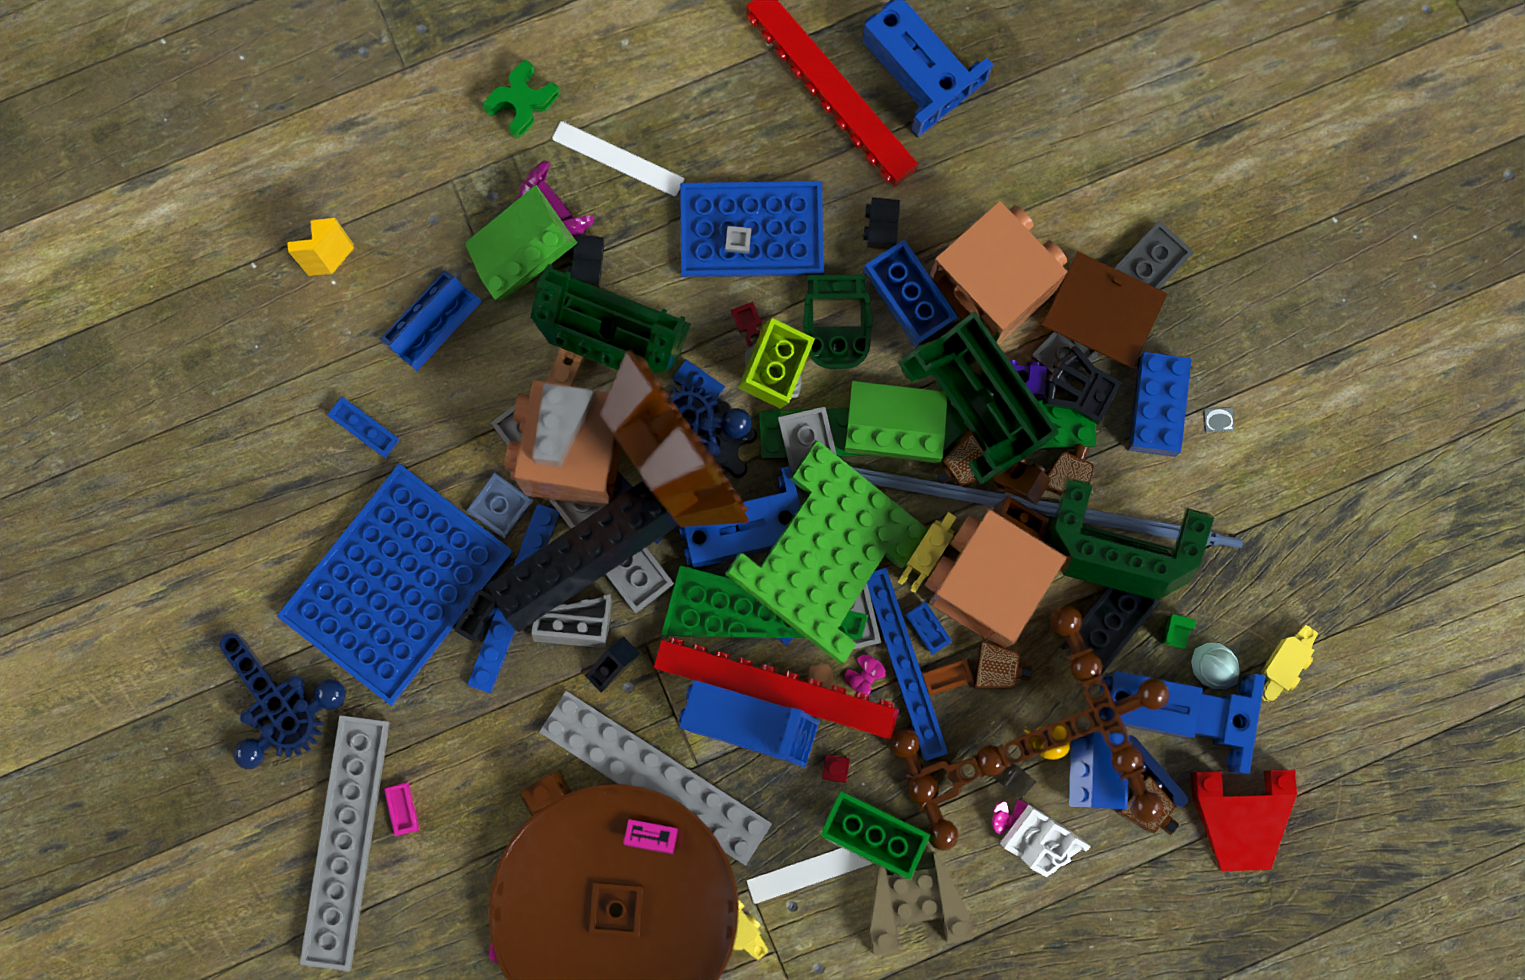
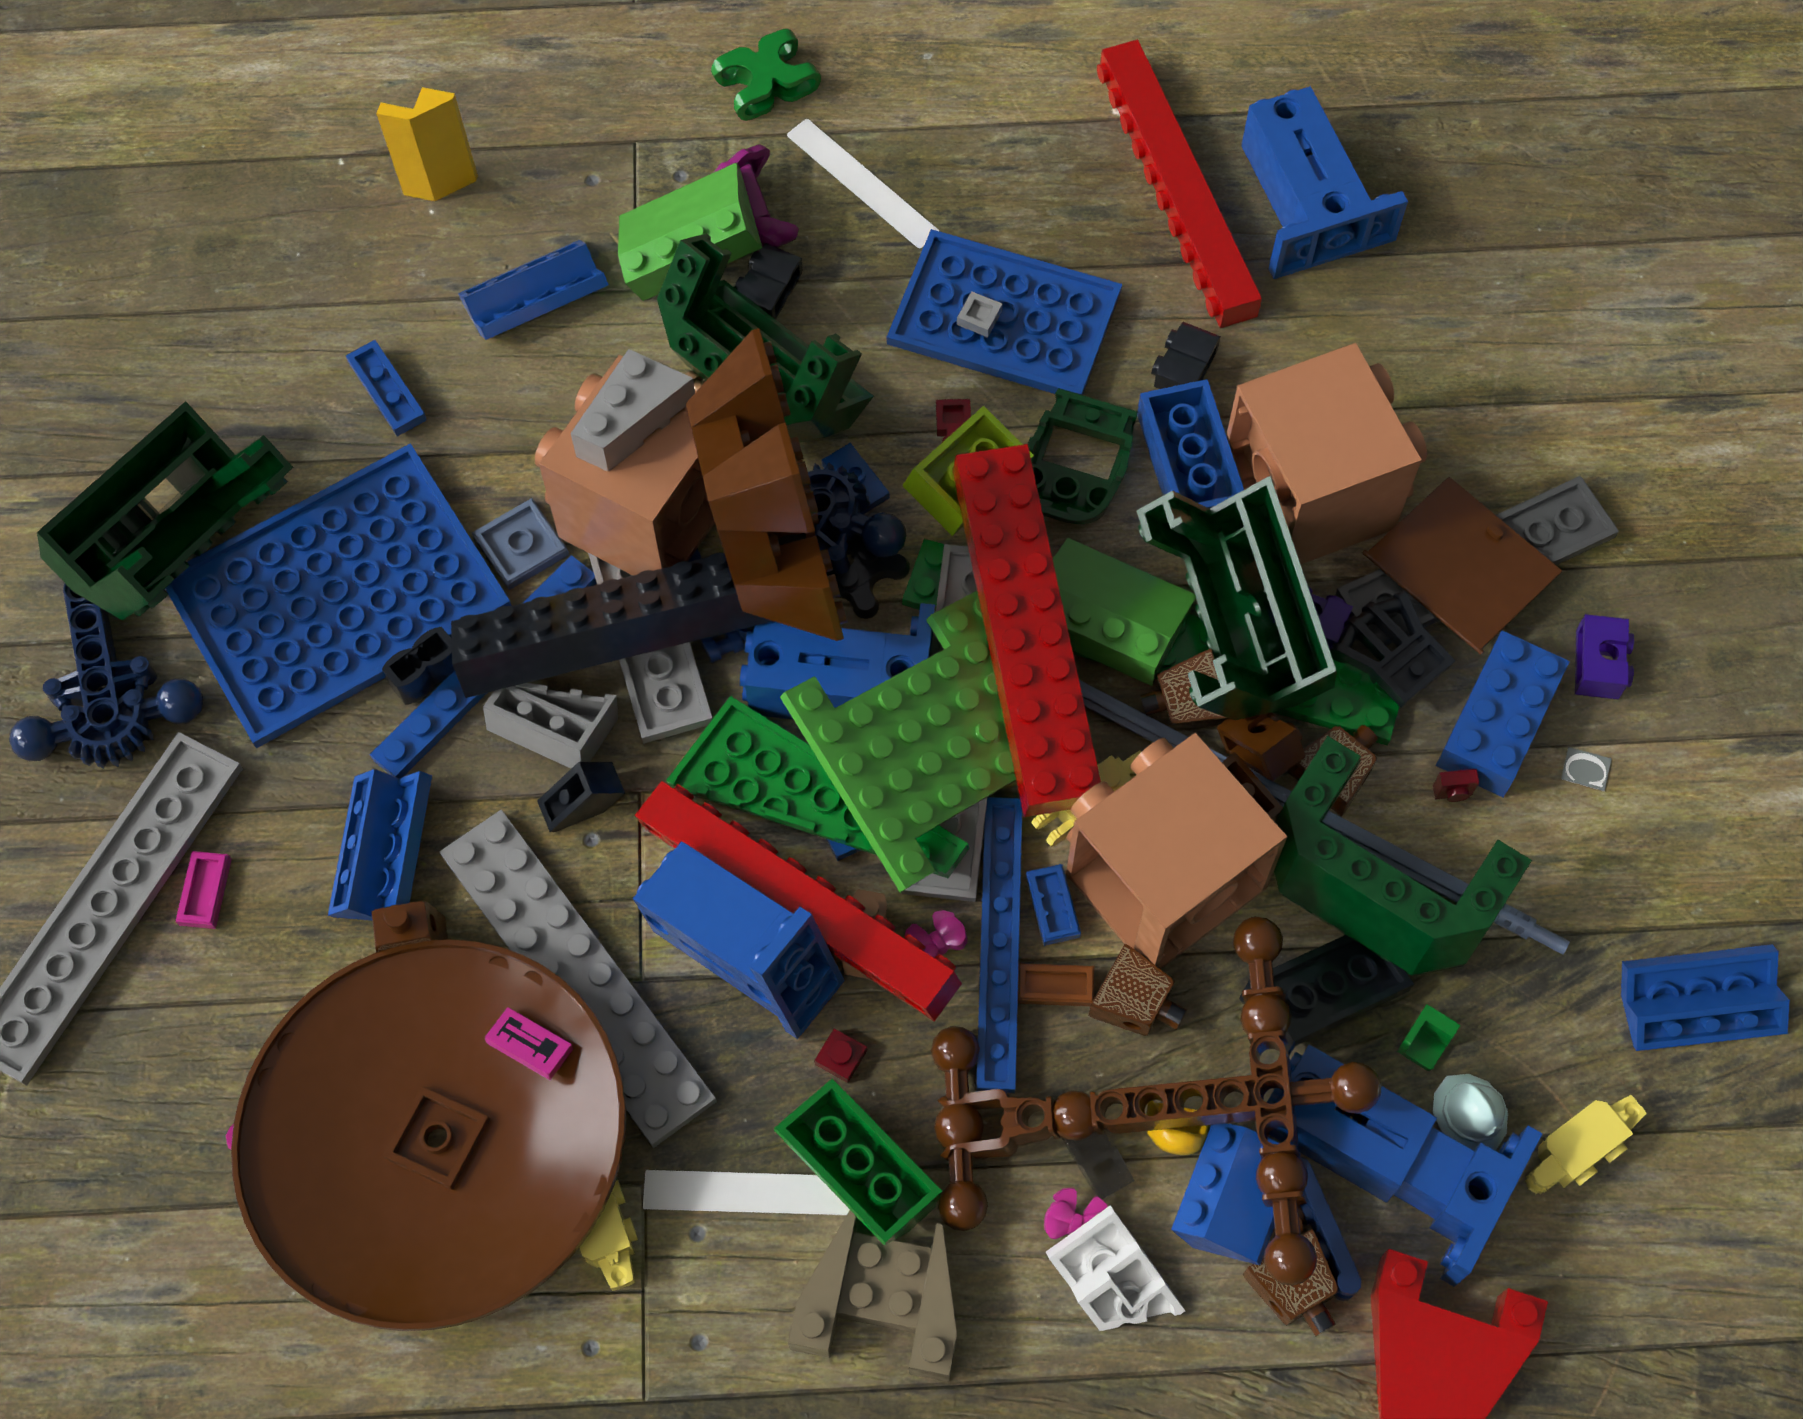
camera: 25 degrees right, 15 degrees down
(264, 580) = (125, 551): none -> dark green wedge
(500, 741) = (379, 843): none -> blue slope
(855, 466) = (1026, 629): none -> red brick
(1145, 463) = (1456, 785): none -> dark red plate
(1206, 356) = (1594, 673): none -> dark purple brick
(1330, 546) = (1704, 997): none -> blue slope

